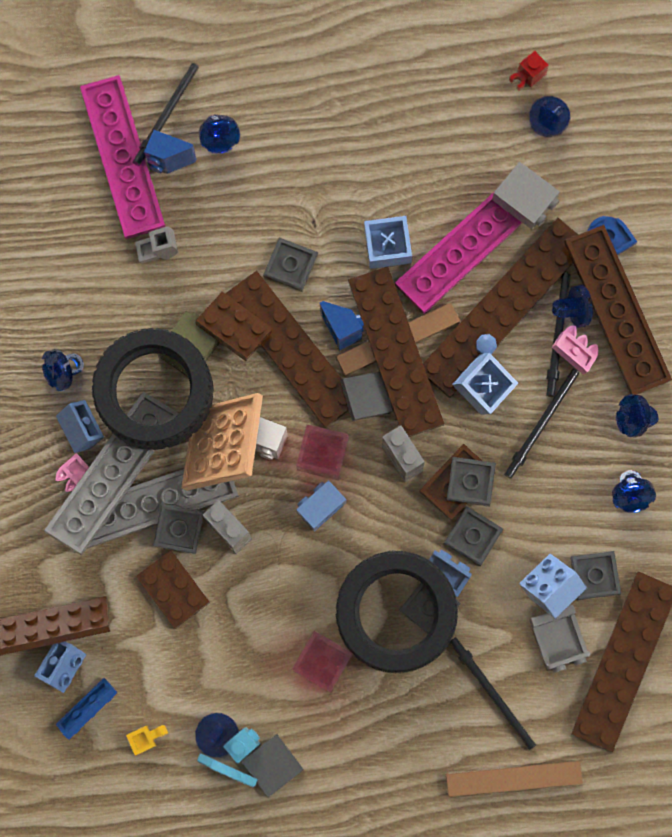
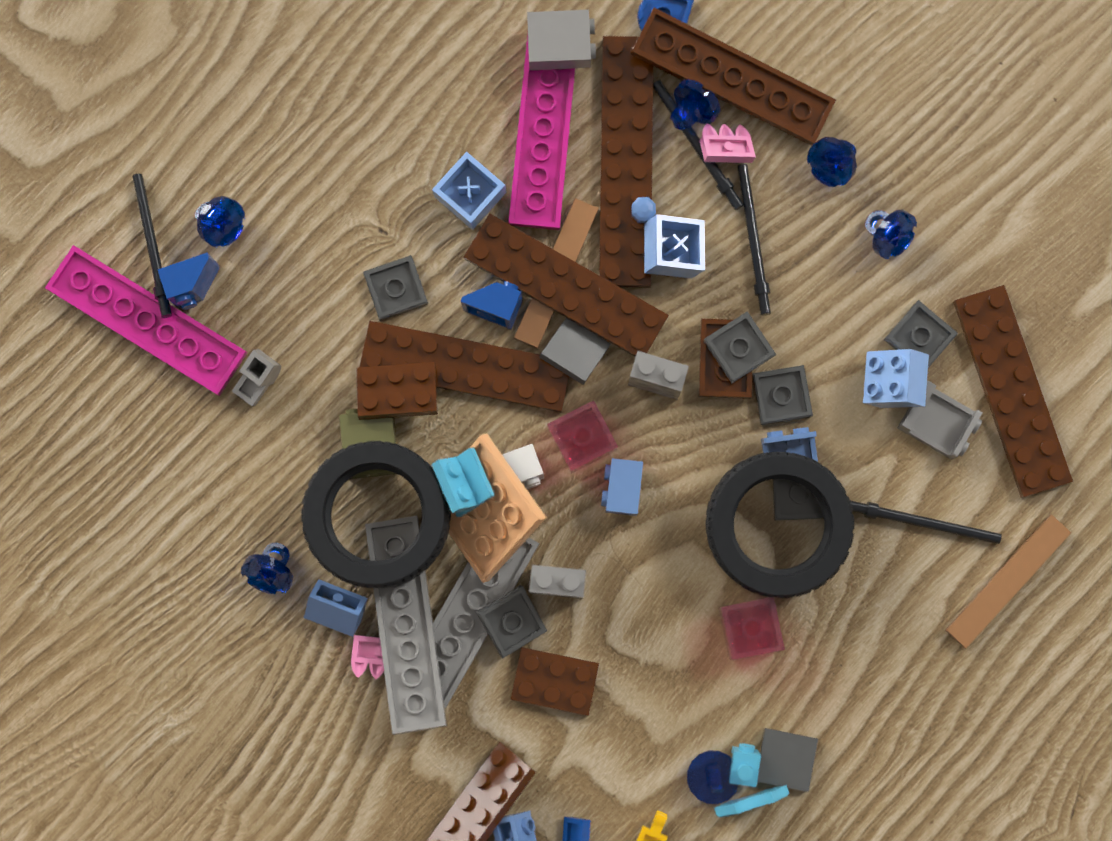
camera: 40 degrees left, 5 degrees up
(221, 412) = (463, 482): none -> medium azure bracket

